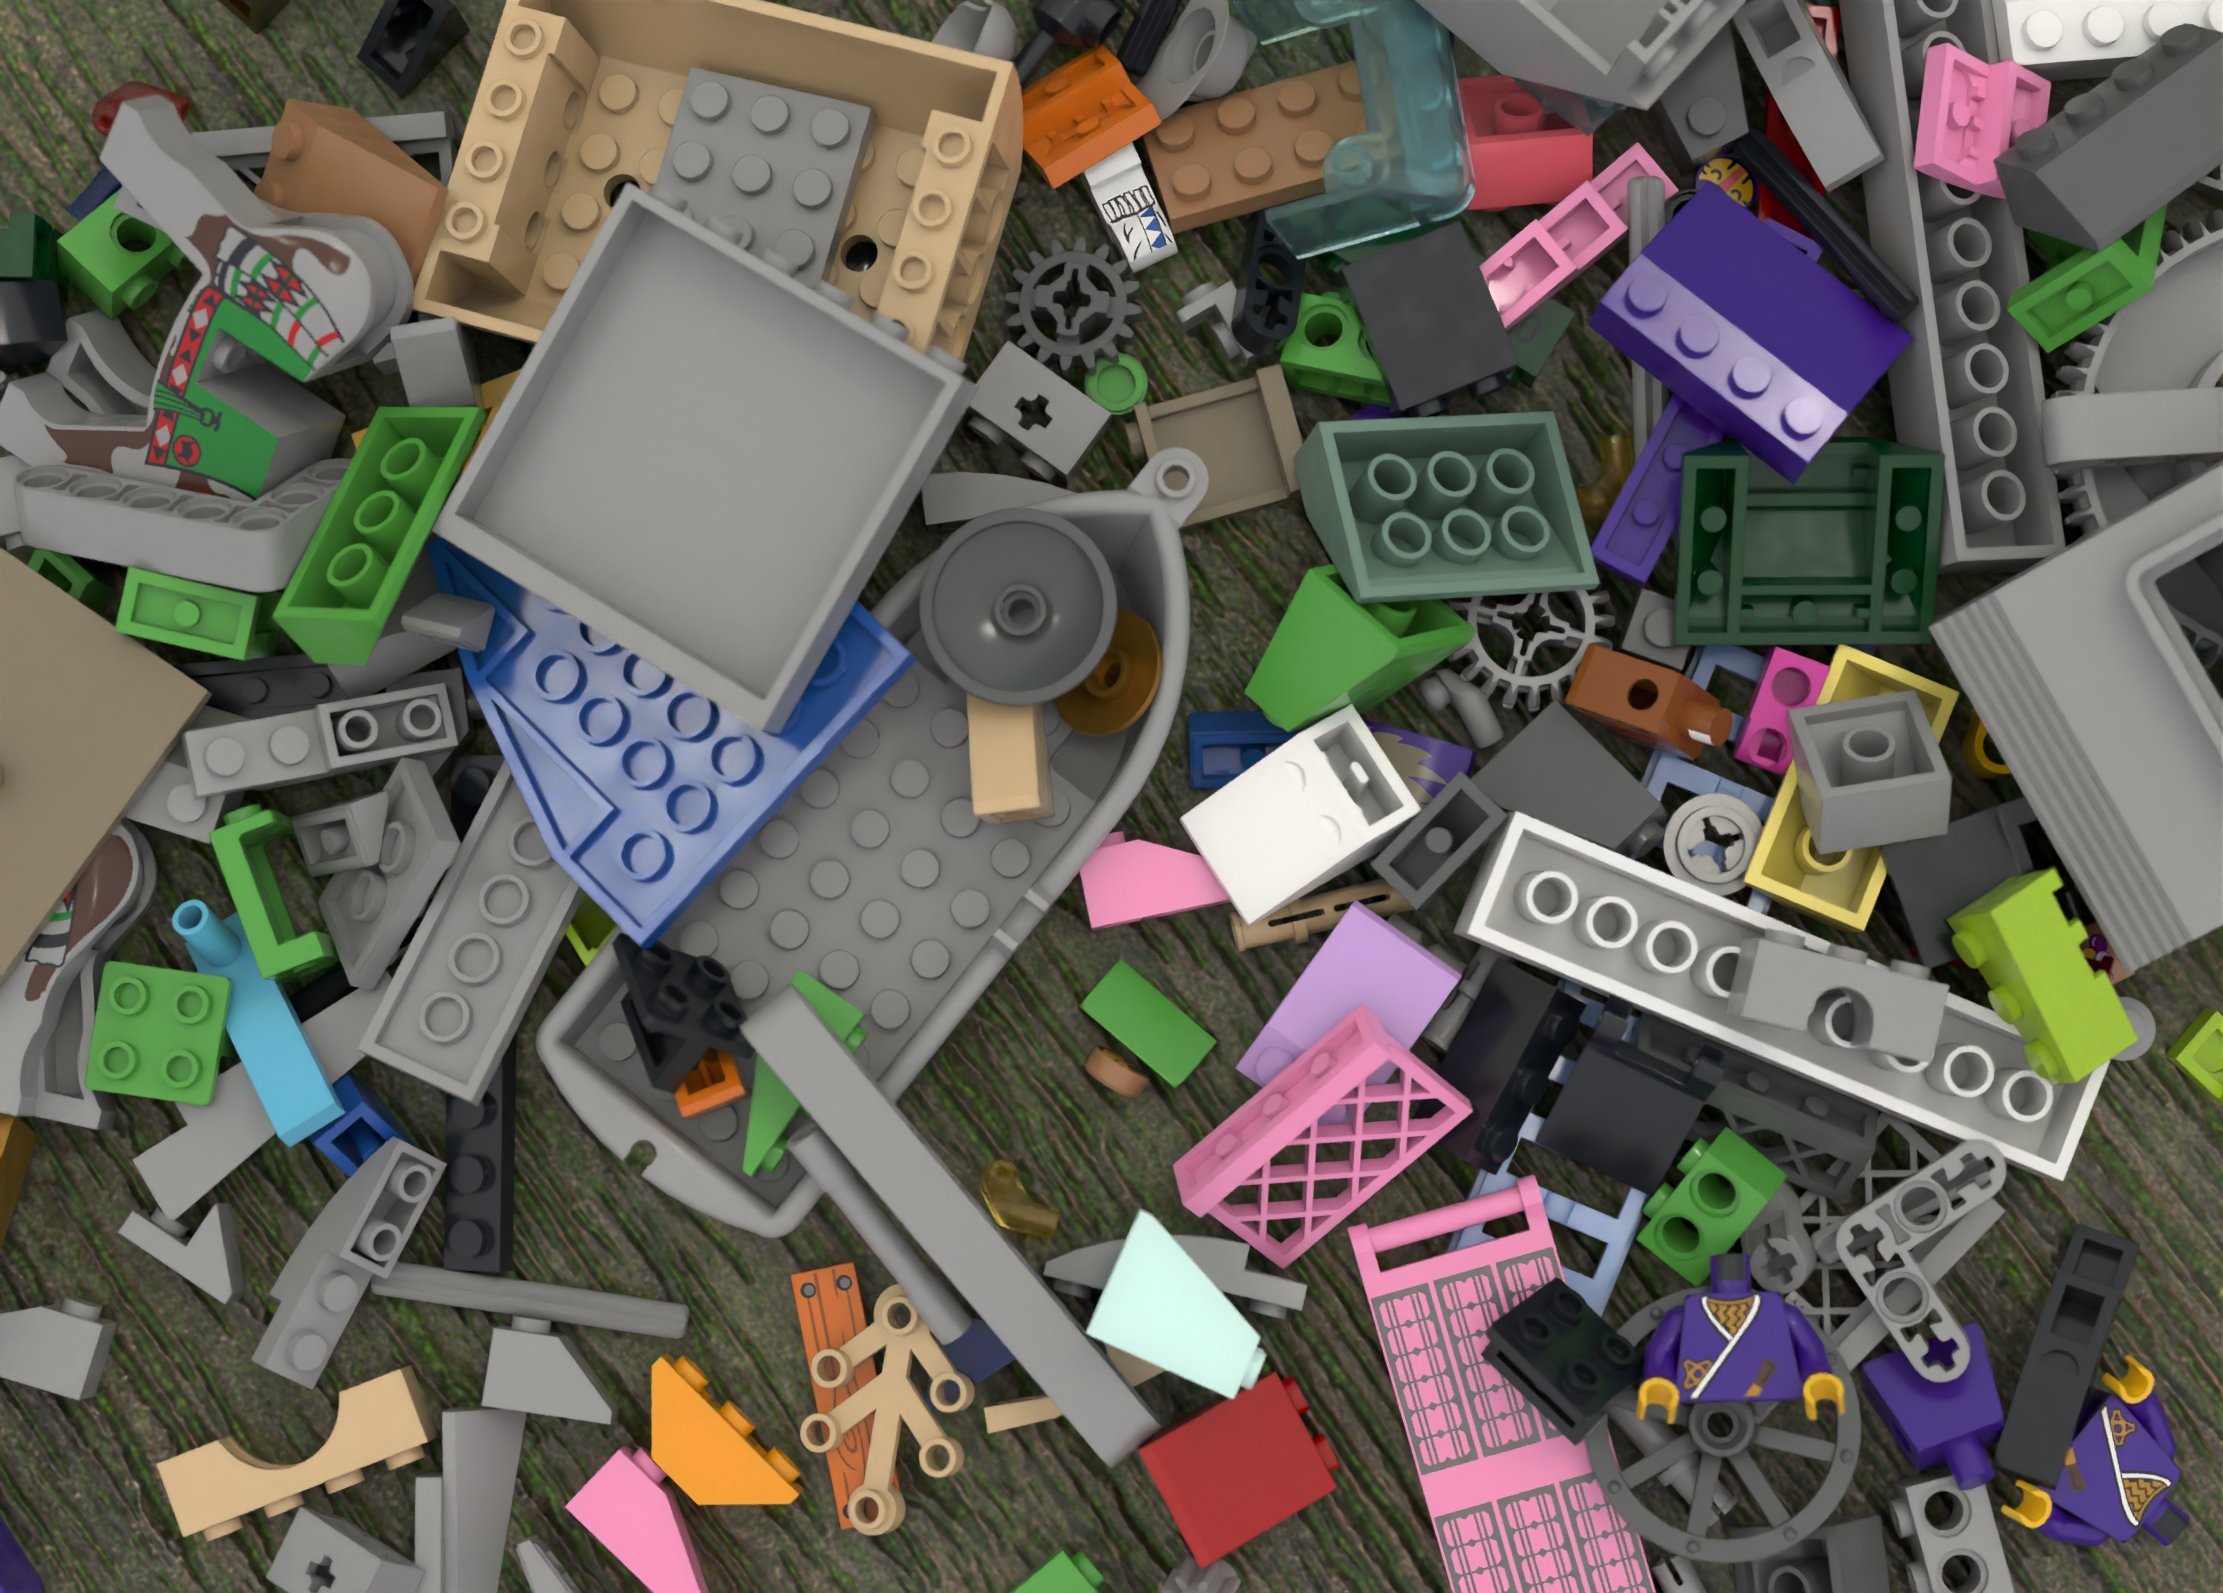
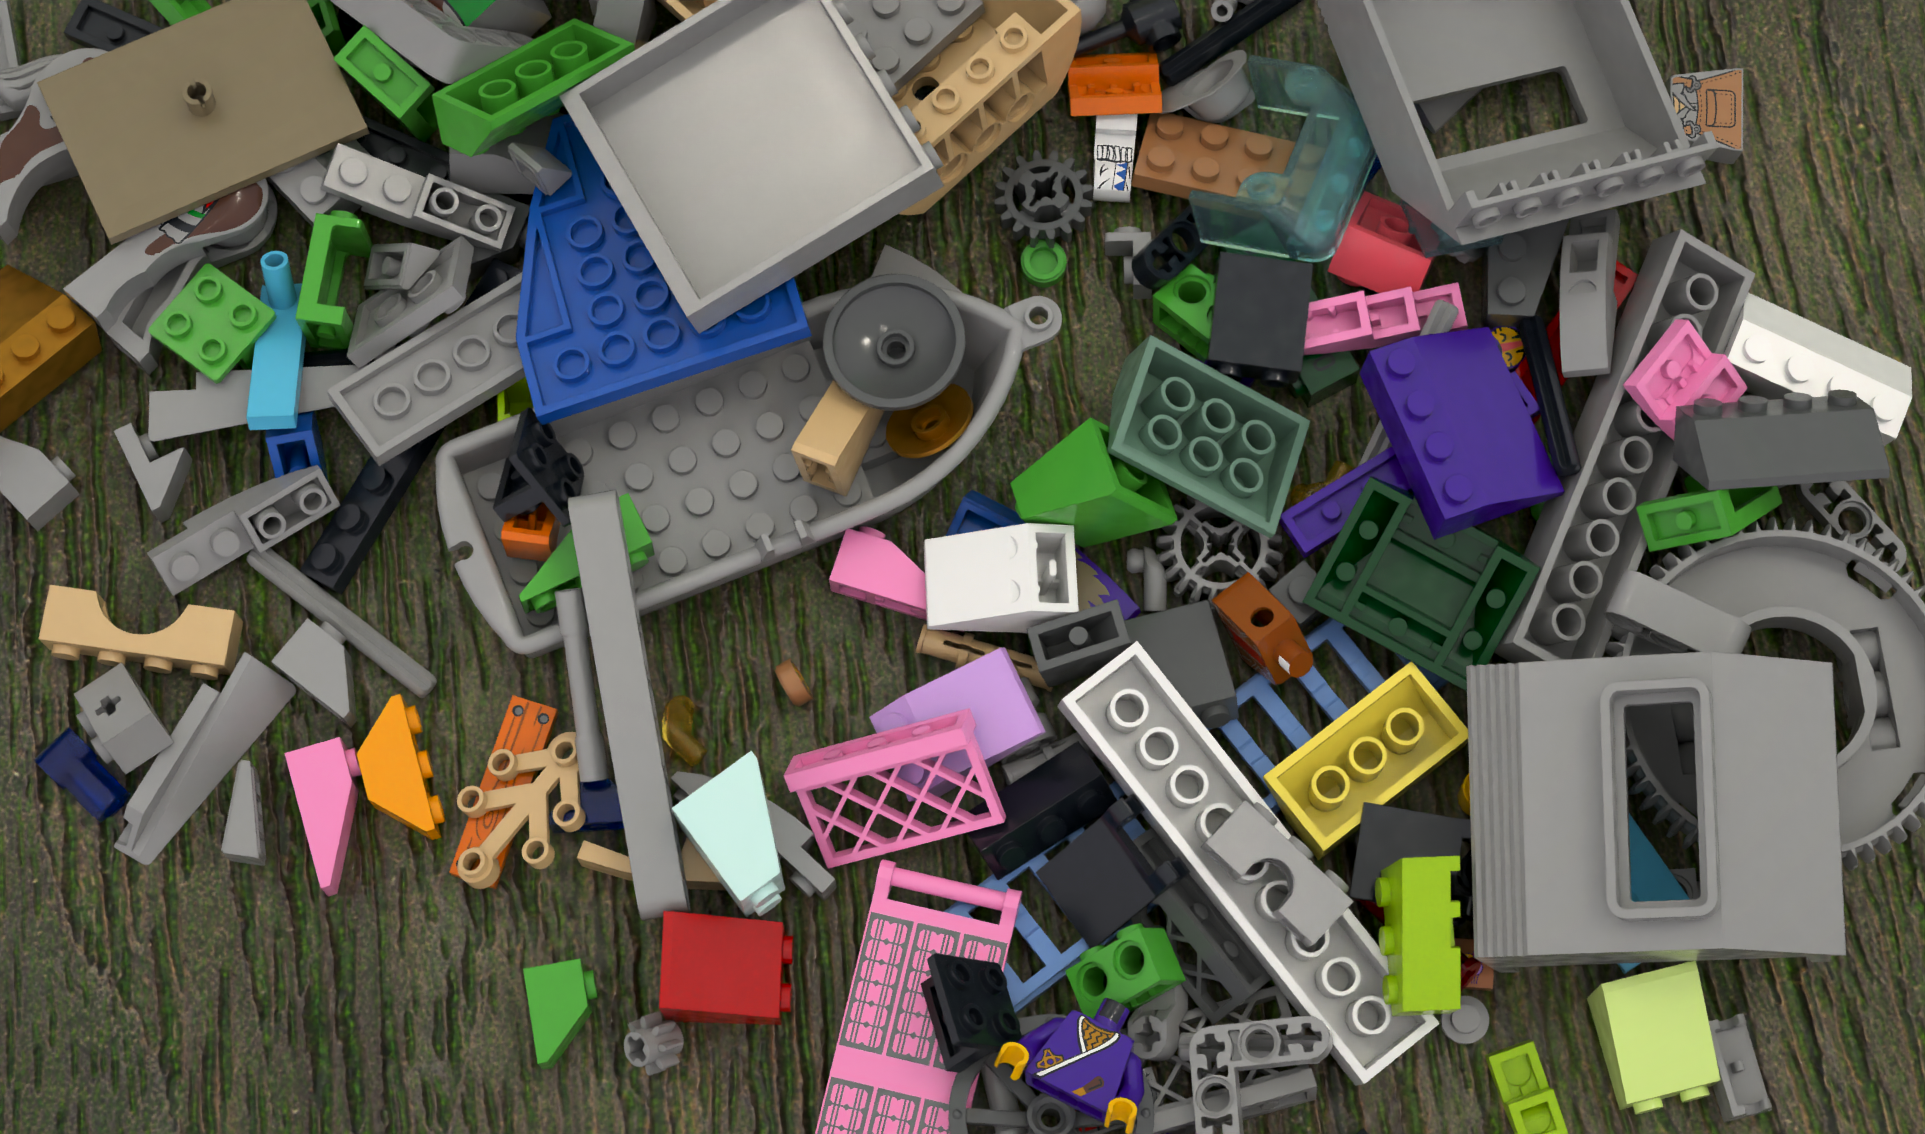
camera: 30 degrees right, 10 degrees down
(1019, 382) = (981, 226): light grey brick -> none
(1148, 1024) = (831, 666): bright green slope -> none
(1240, 433) = (1092, 339): dark tan panel -> none
(1685, 830) = (1245, 729): light grey gear -> none
(1784, 684) = (1349, 682): dark pink leg -> none
(1869, 772) = (1381, 747): light grey slope -> none

